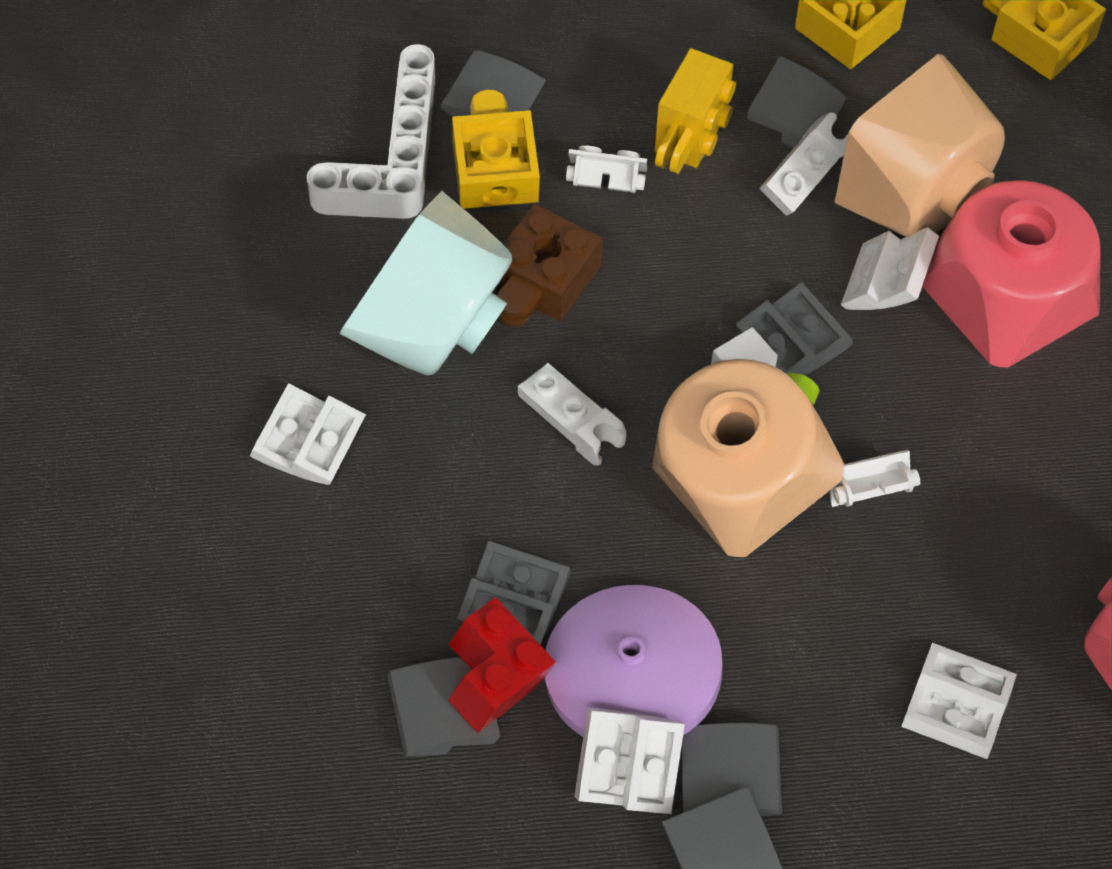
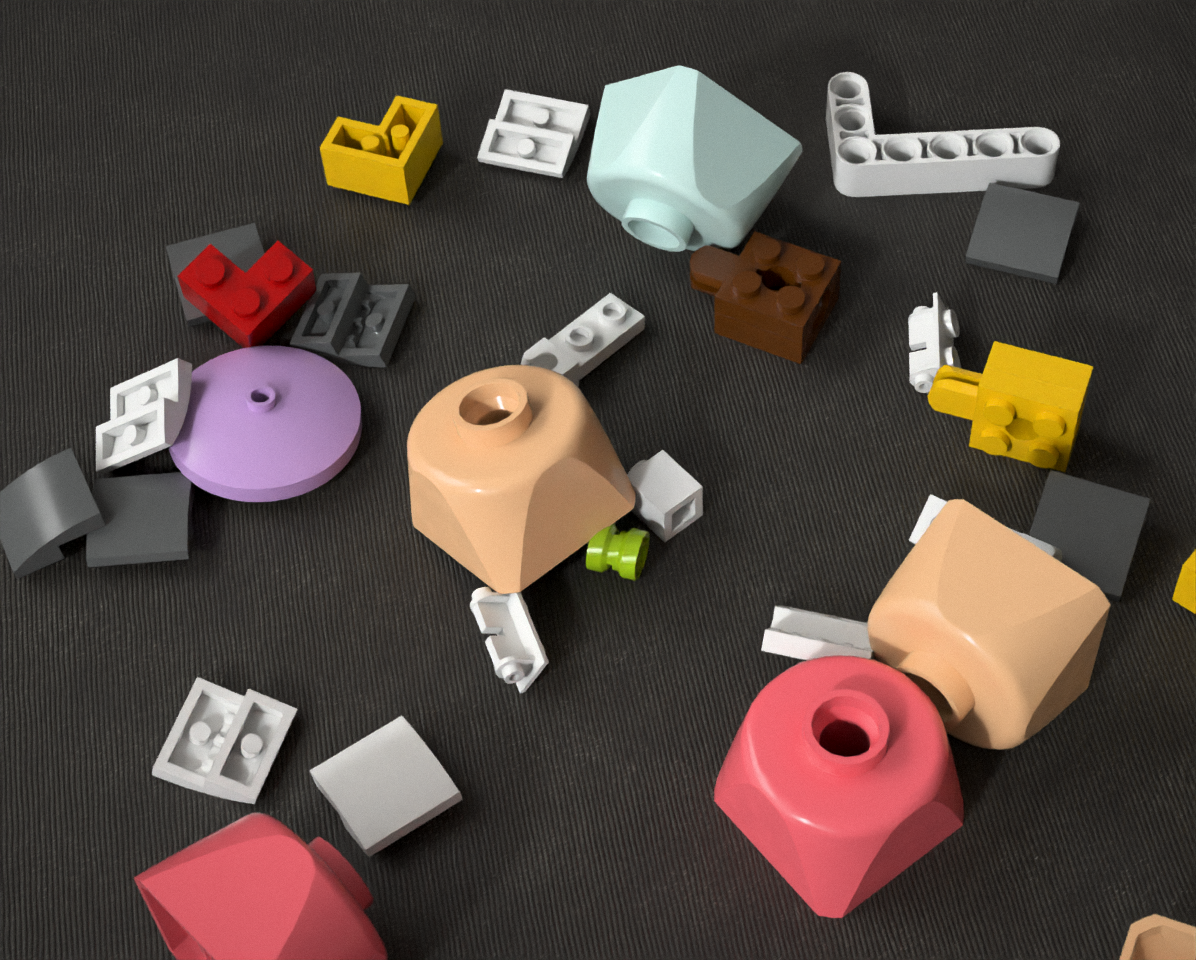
camera: 90 degrees right, 5 degrees down
(333, 545) = (384, 158): none -> yellow brick
(495, 154) = (924, 209): yellow brick -> none
(798, 331) = (724, 554): dark grey slope -> none
(1004, 578) = (386, 785): none -> white slope

